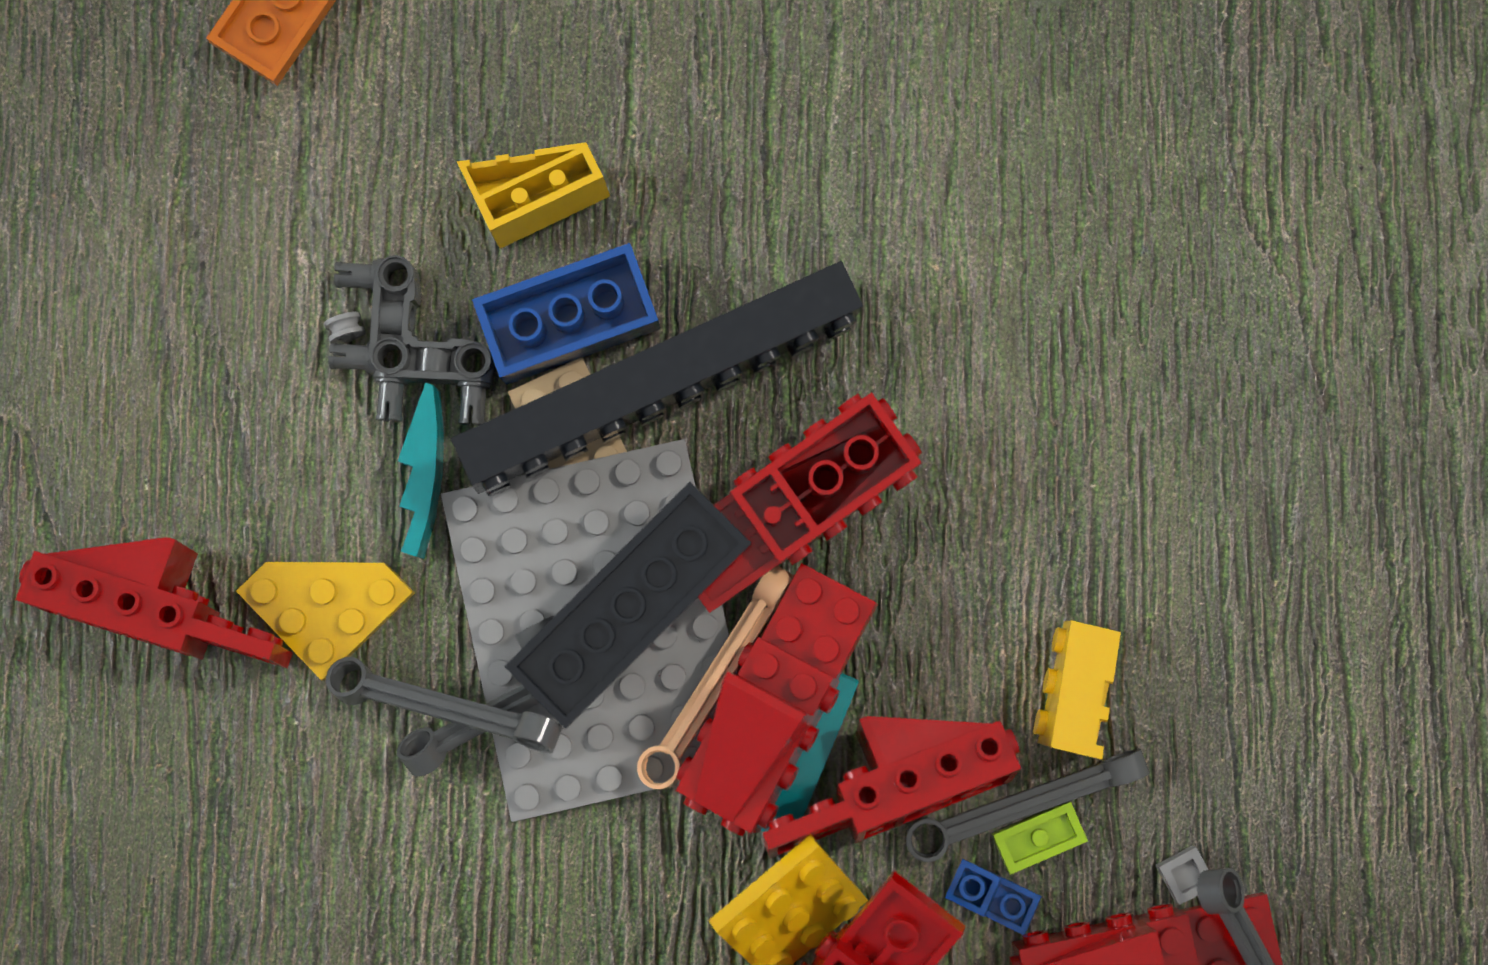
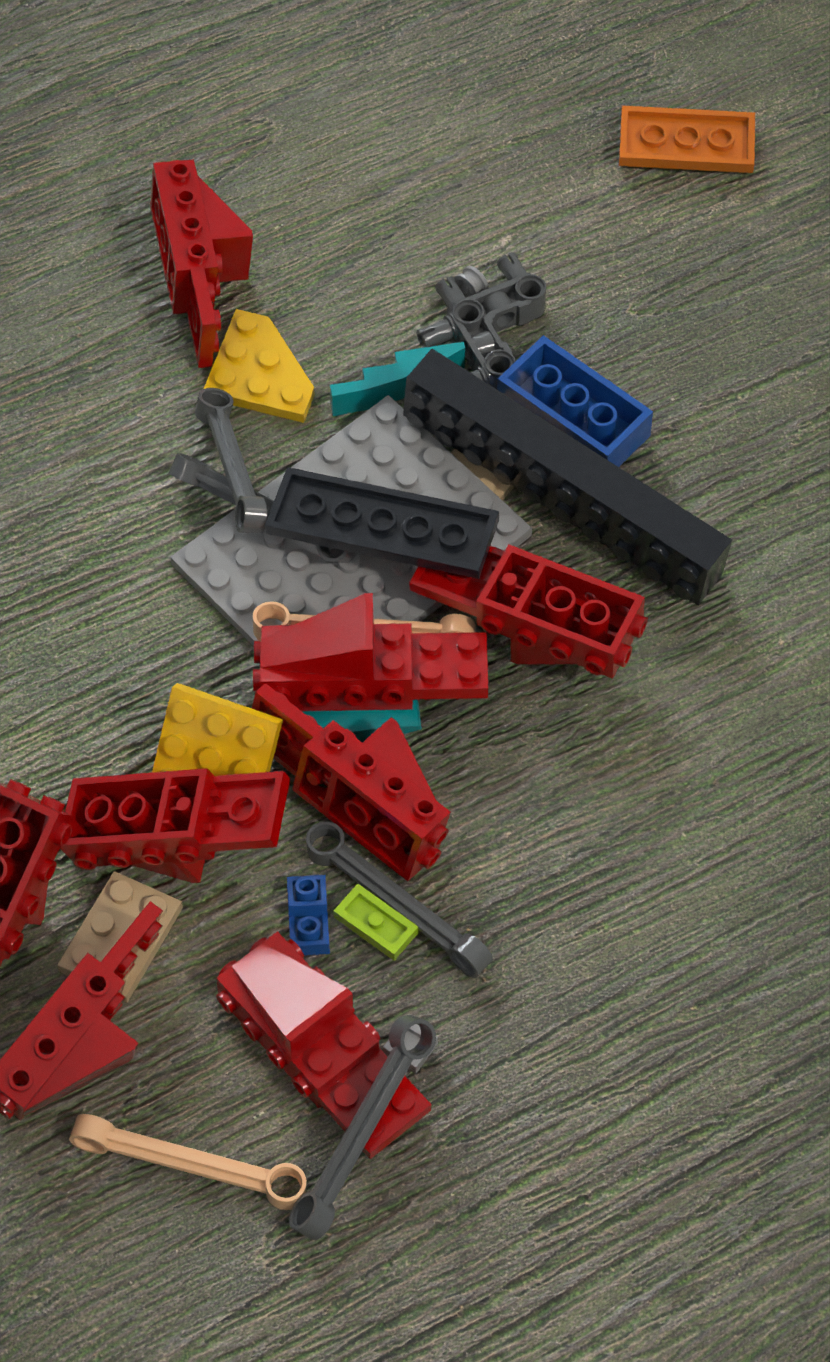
camera: 60 degrees right, 25 degrees down
(534, 189) = (651, 344): yellow wedge -> none
(1078, 688) = (510, 886): yellow wedge -> none

